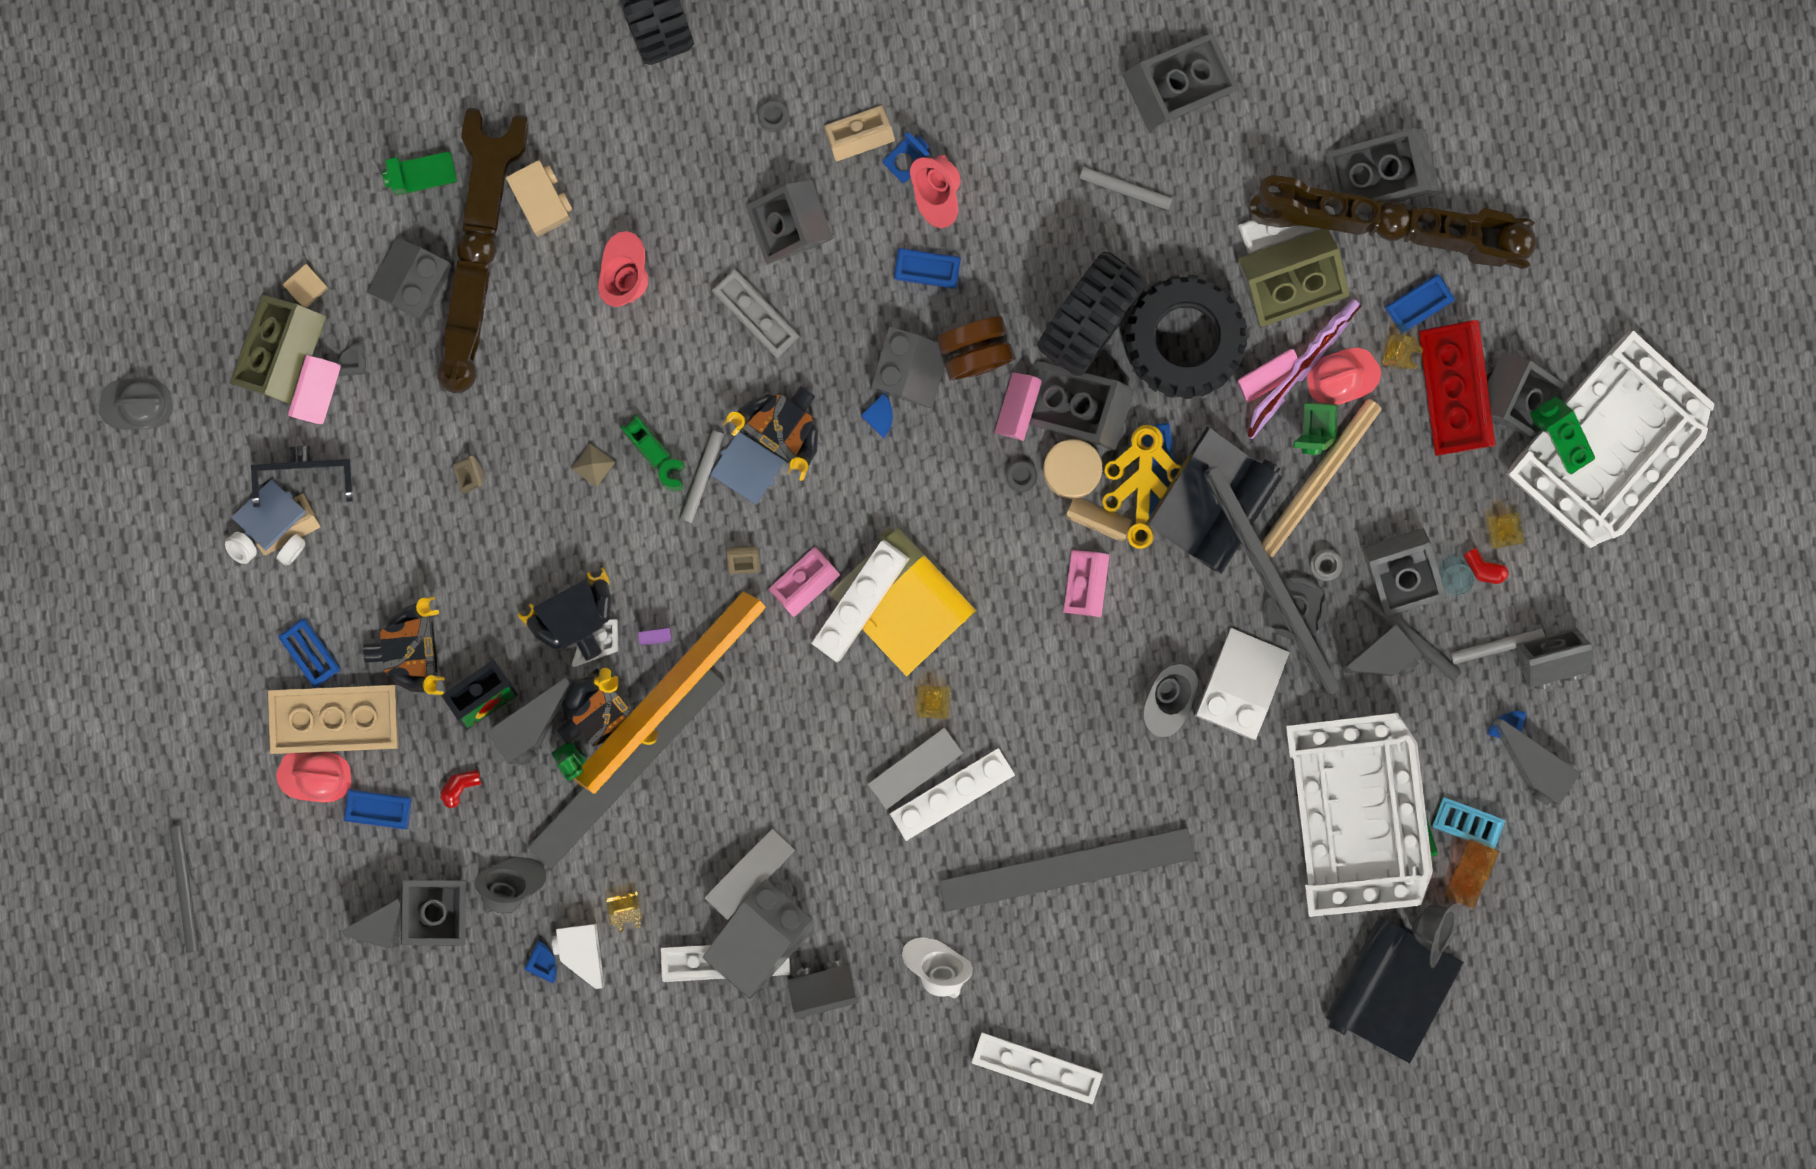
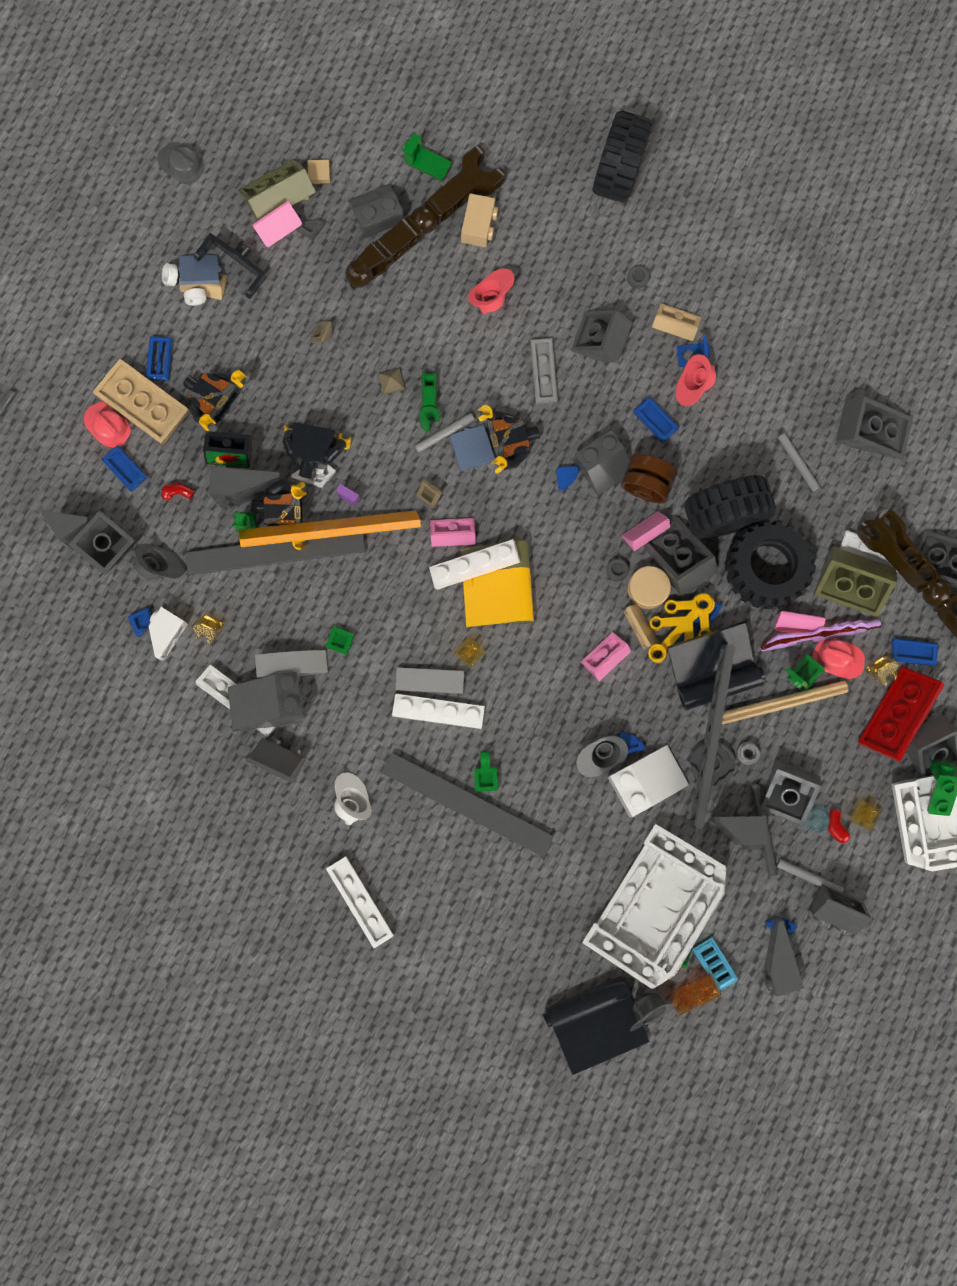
camera: 30 degrees right, 5 degrees down
(780, 805) = (340, 640): none -> green tile
(1062, 823) = (485, 776): none -> green plate
(1190, 656) = (633, 743): none -> blue tile

